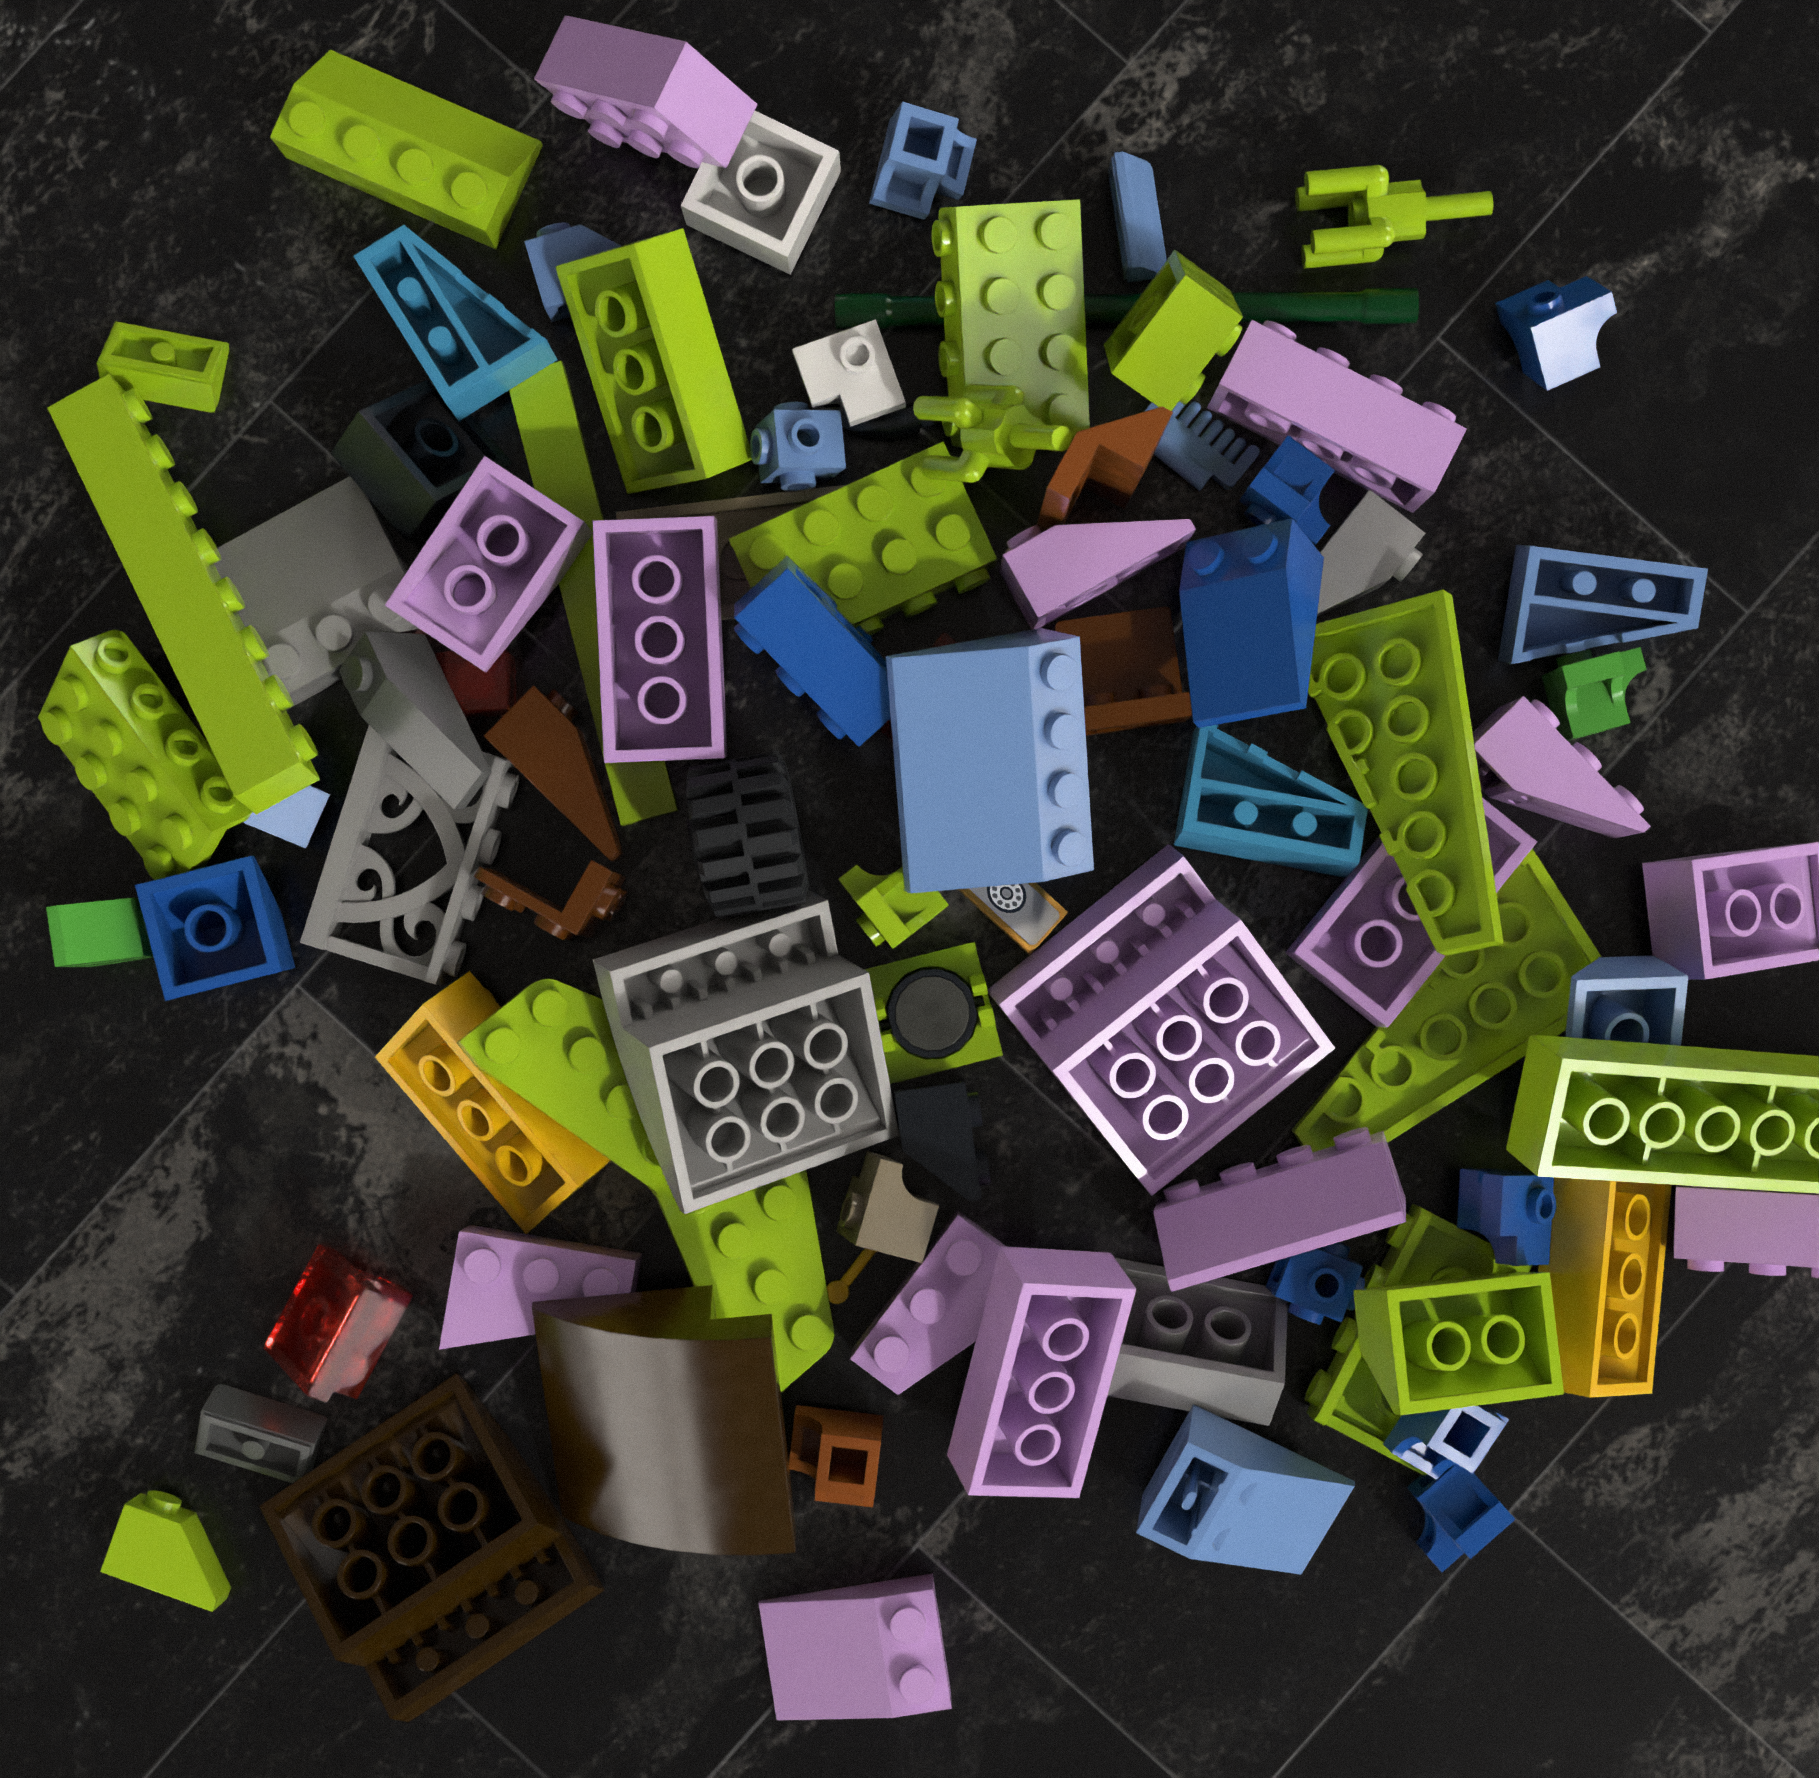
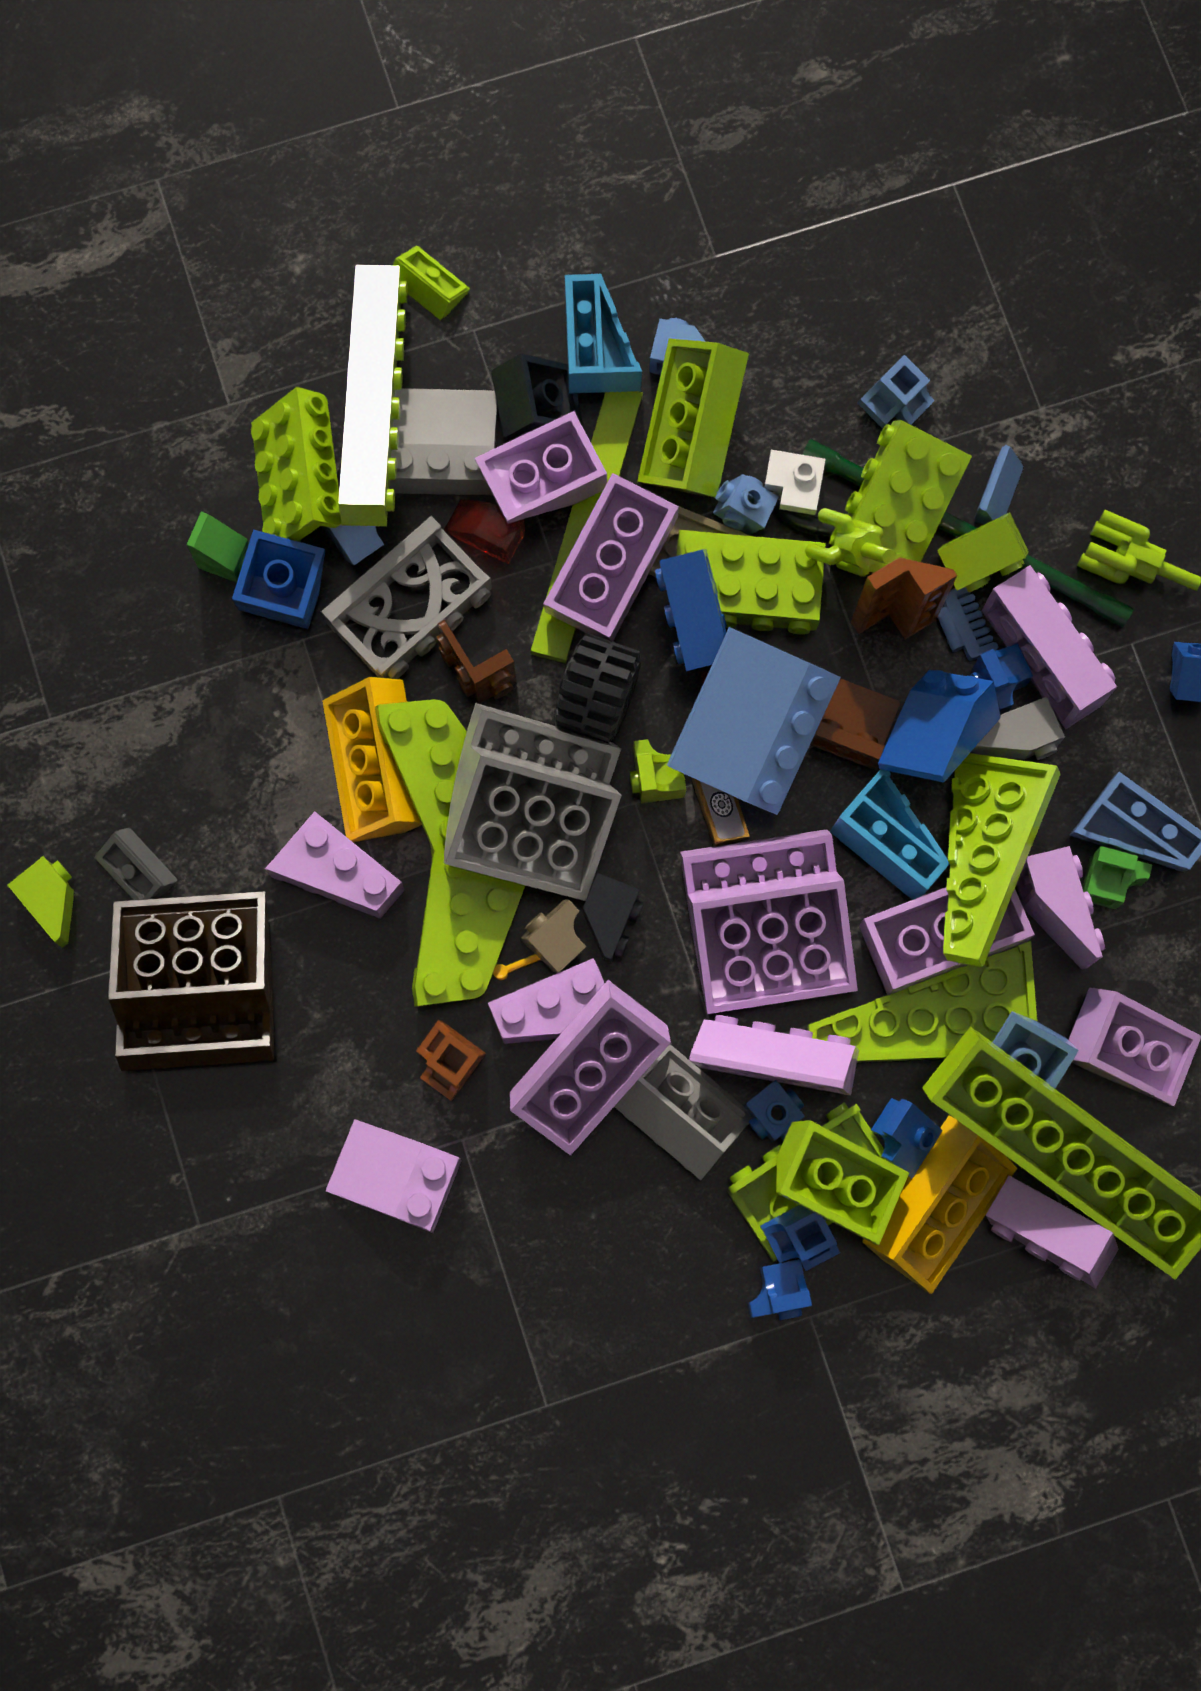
camera: 25 degrees right, 10 degrees down
(335, 1326) = (215, 829): clear red bracket -> none
(406, 147) = (624, 241): lime slope -> none
(416, 712) = (457, 522): dark grey slope -> none
(555, 758) = (516, 593): reddish brown slope -> none
(645, 92) = (769, 275): lavender brick -> none
(667, 1421) = (367, 976): dark brown slope -> none
(766, 193) = (803, 360): white brick -> none
(934, 1013) = (642, 846): piece -> none
(1077, 562) = (863, 647): lavender slope -> none
(1239, 1498) = (662, 1211): medium blue slope -> none

